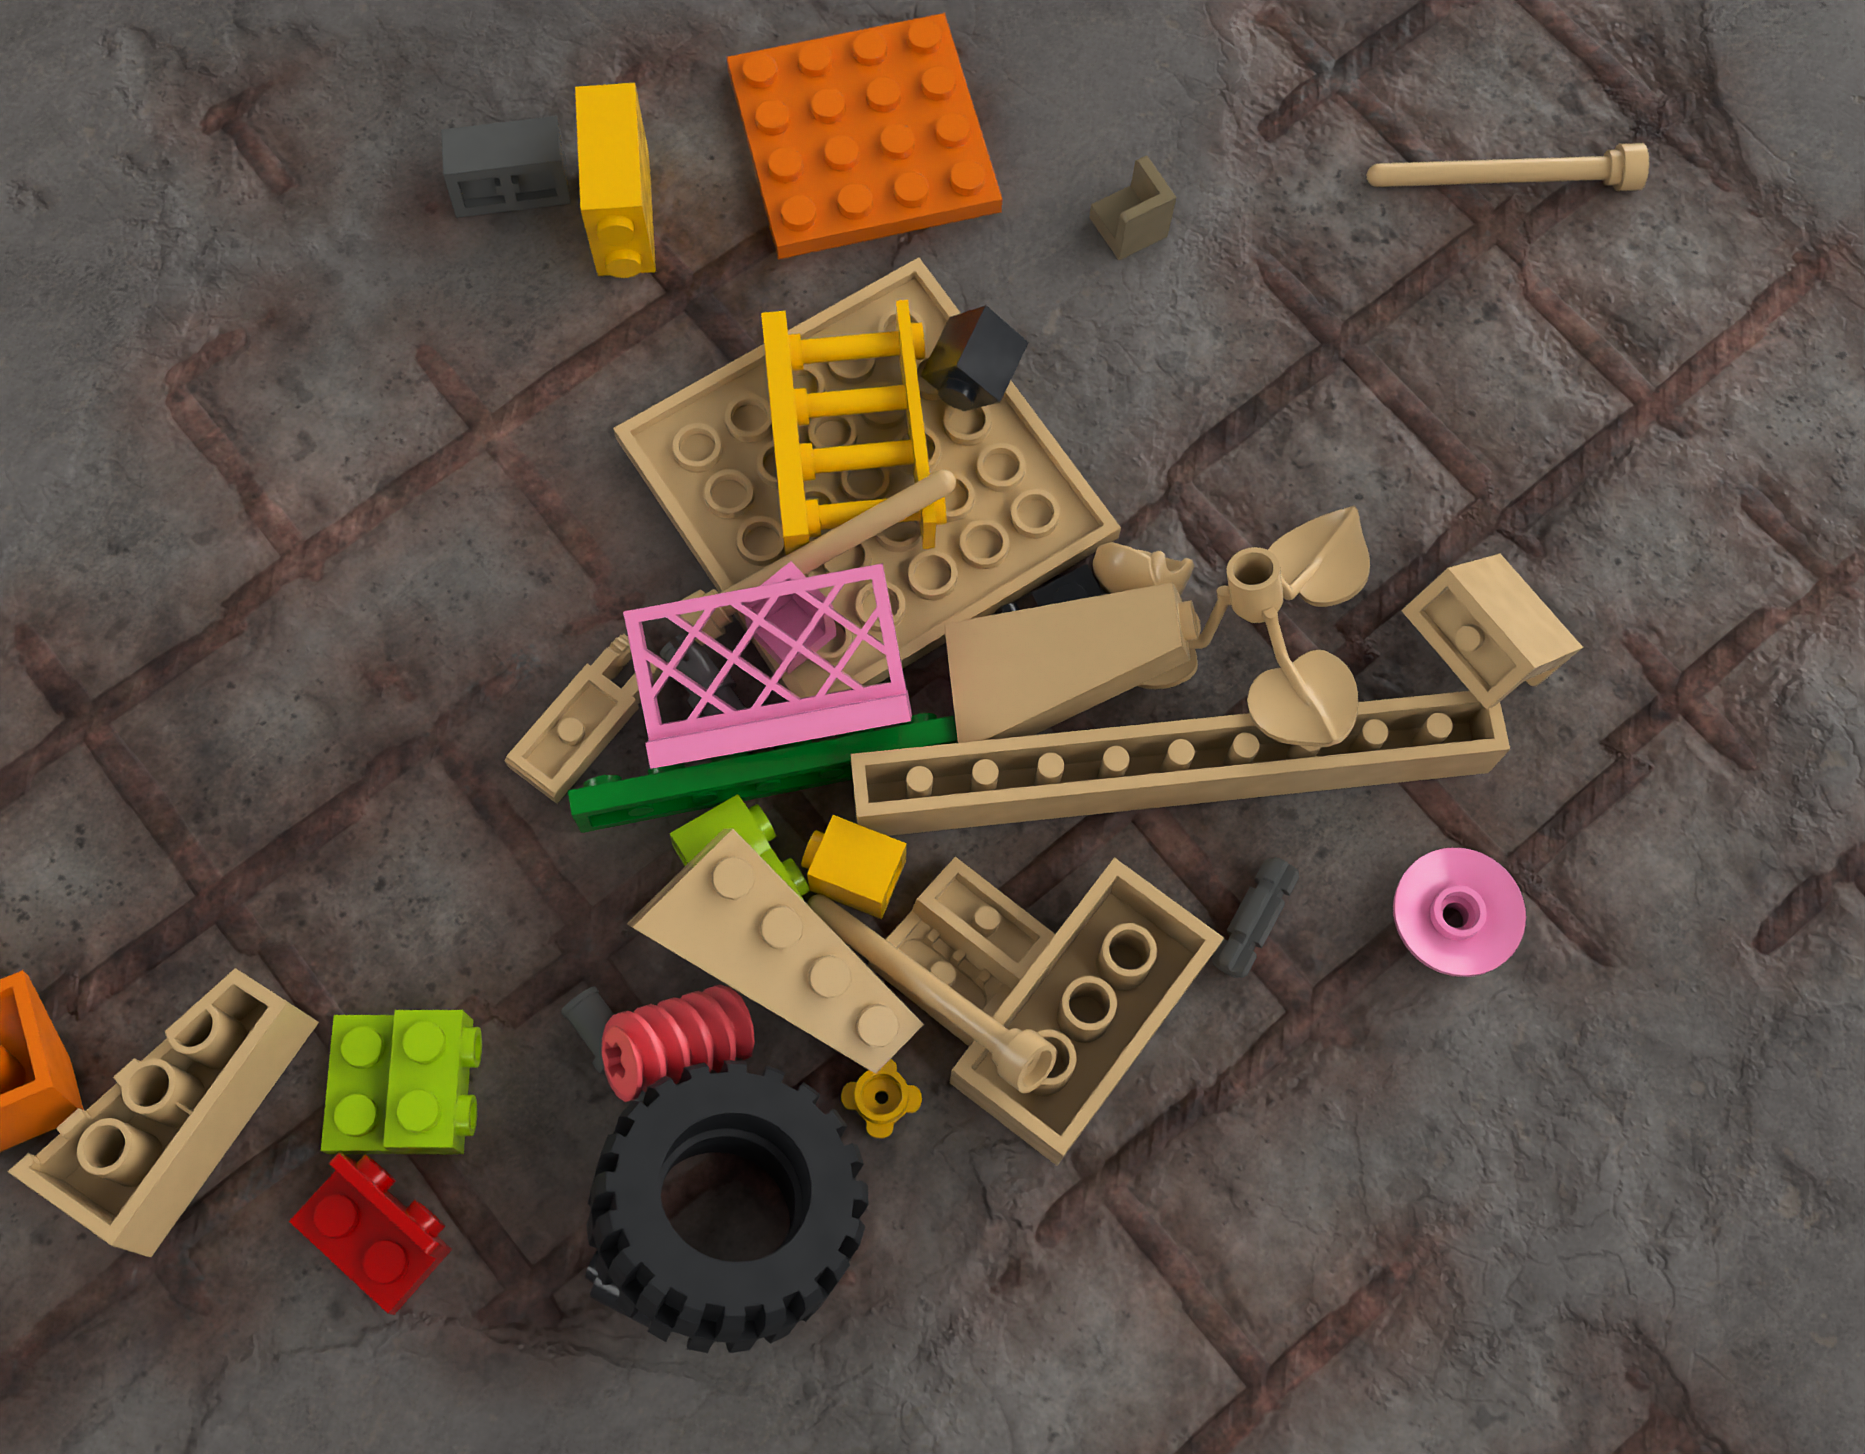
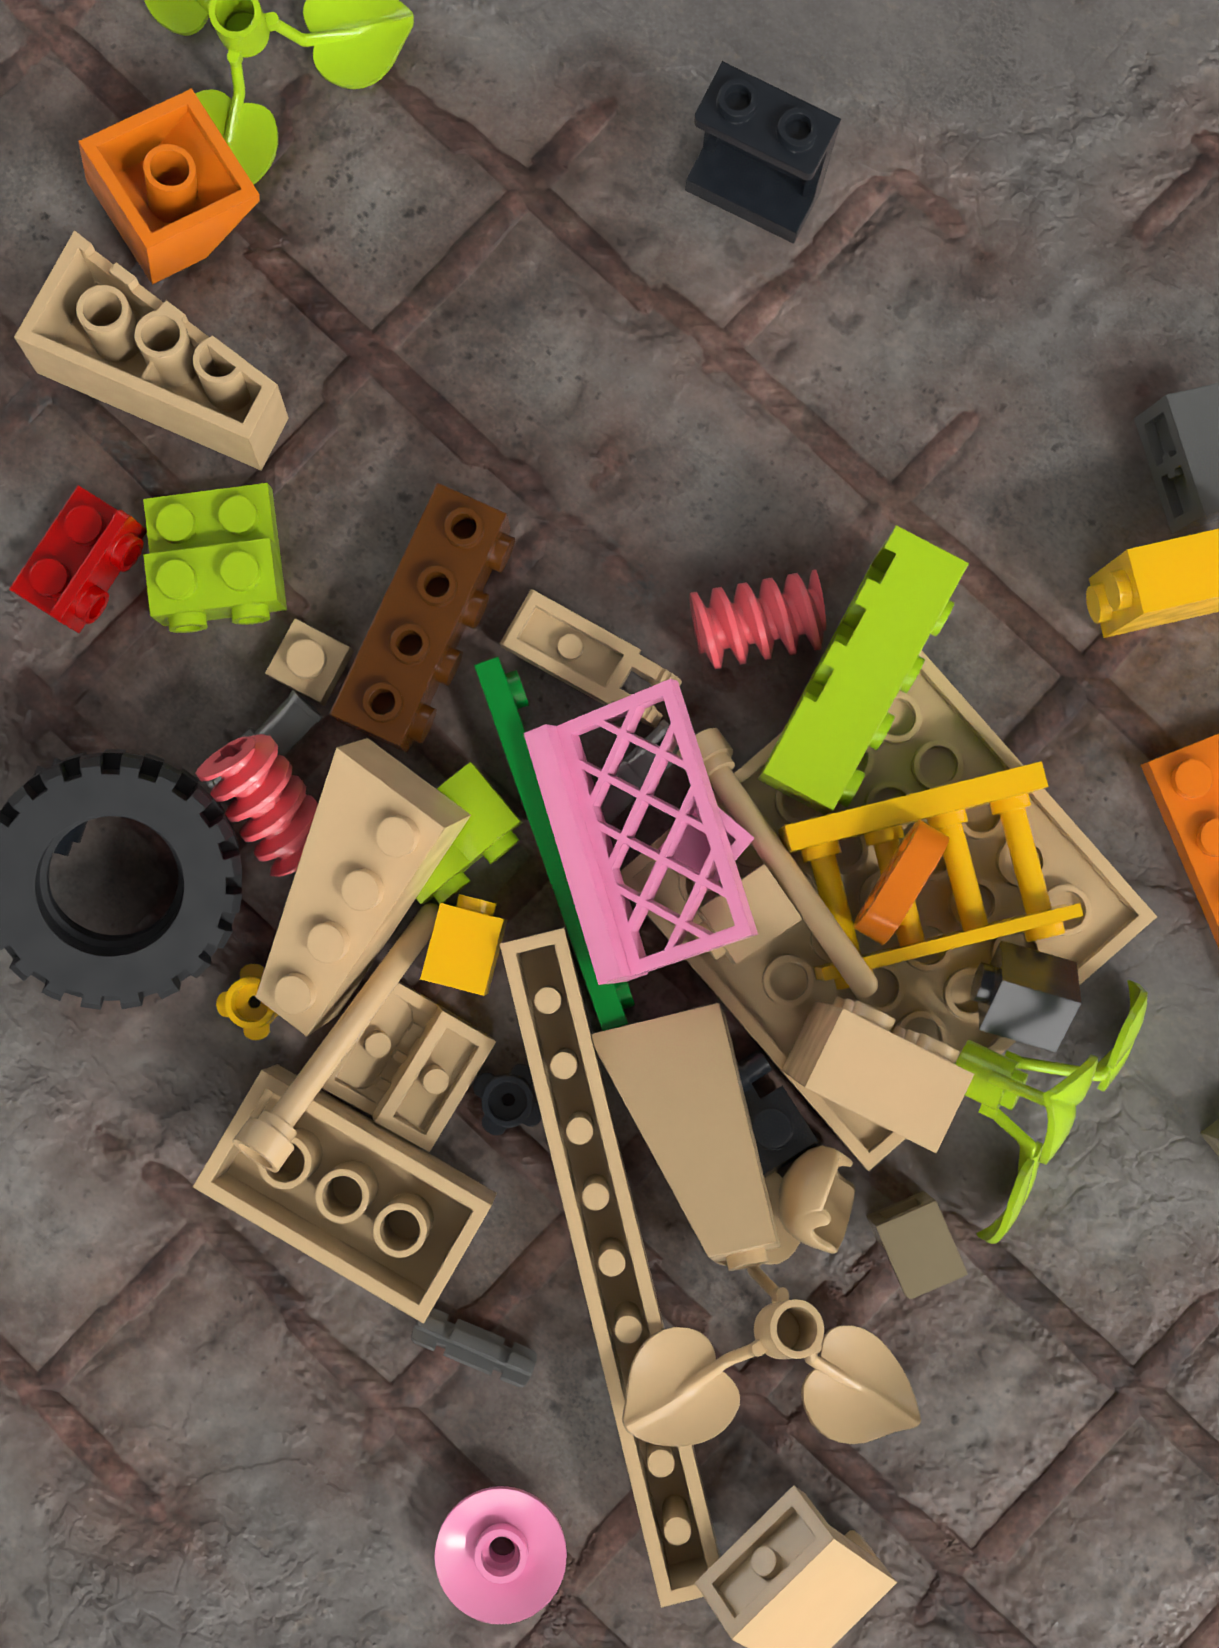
camera: 85 degrees right, 15 degrees up
(119, 477) = (761, 152): none -> black panel
(514, 869) = (424, 618): none -> reddish brown brick
(533, 998) = (309, 662): none -> tan plate
(575, 552) = (759, 619): none -> coral piece
(647, 453) = (862, 672): none -> lime wedge
(853, 440) = (901, 882): none -> orange beam
(857, 599) = (769, 907): none -> tan brick
(1021, 836) = (501, 1116): none -> black plate
(1024, 477) = (884, 1076): none -> tan brick
(1049, 394) = (1001, 1083): none -> lime plant
(1190, 492) = (917, 1244): none -> dark tan panel

